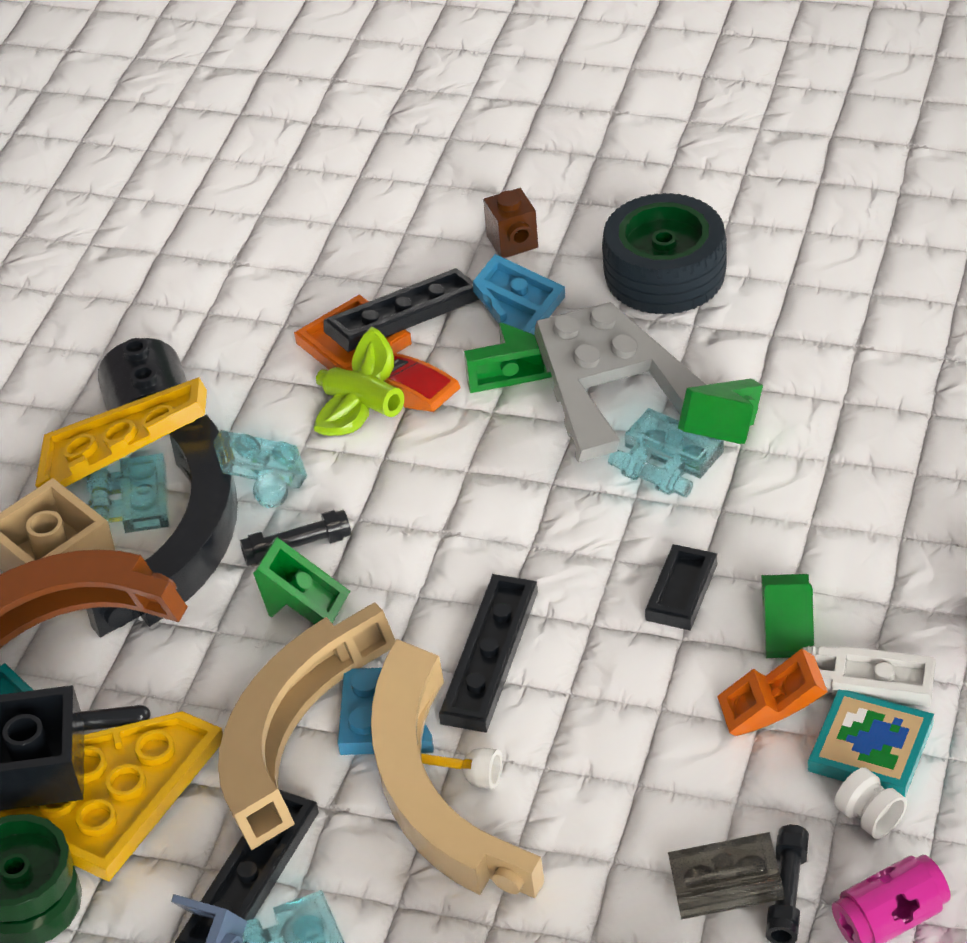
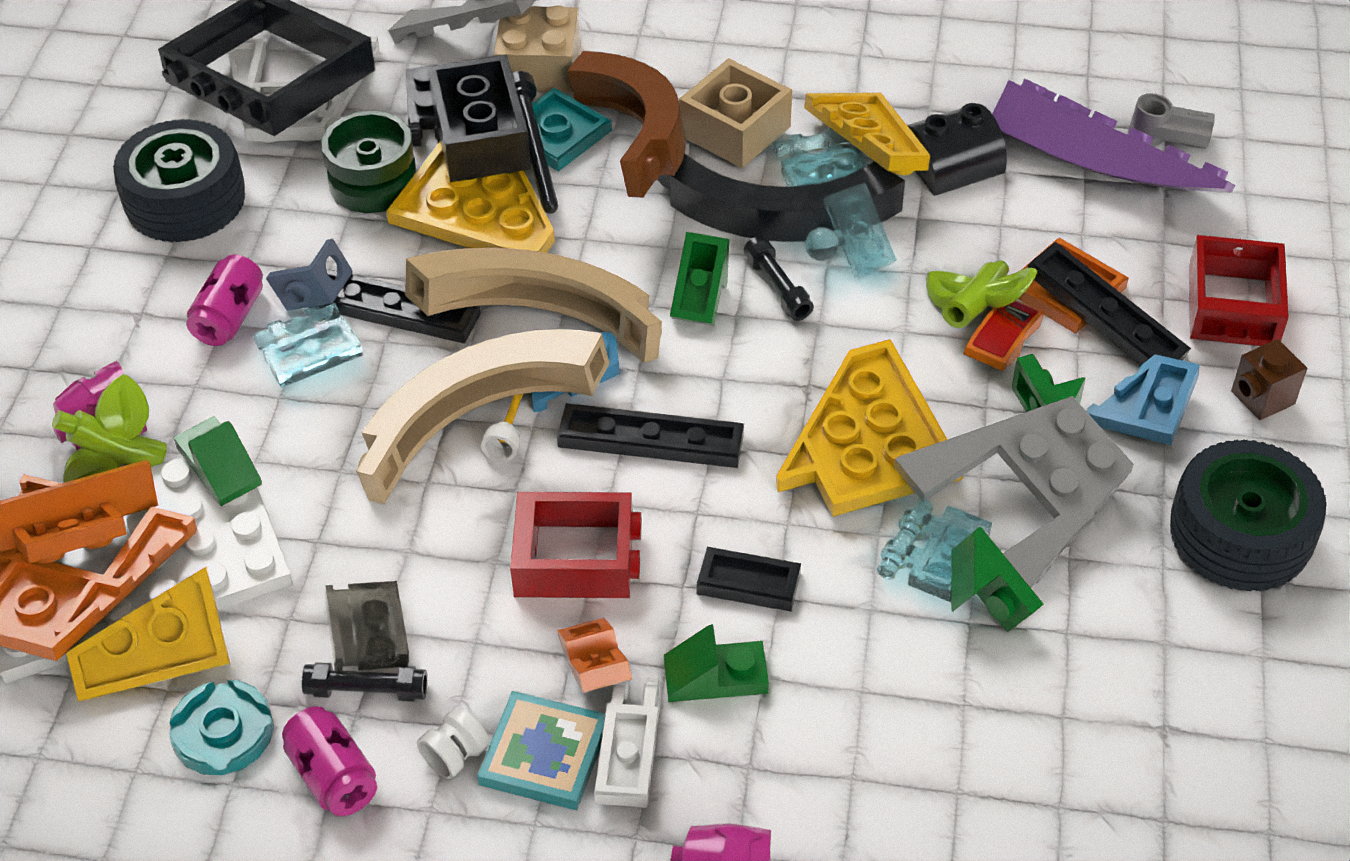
camera: 80 degrees right, 5 degrees up
(165, 238) = (1172, 124): none -> light grey piece
(186, 285) = (1093, 143): none -> medium lavender wedge
(400, 204) = (1238, 319): none -> red window
(520, 486) = (859, 430): none -> yellow wing
(656, 744) = (574, 576): none -> red window

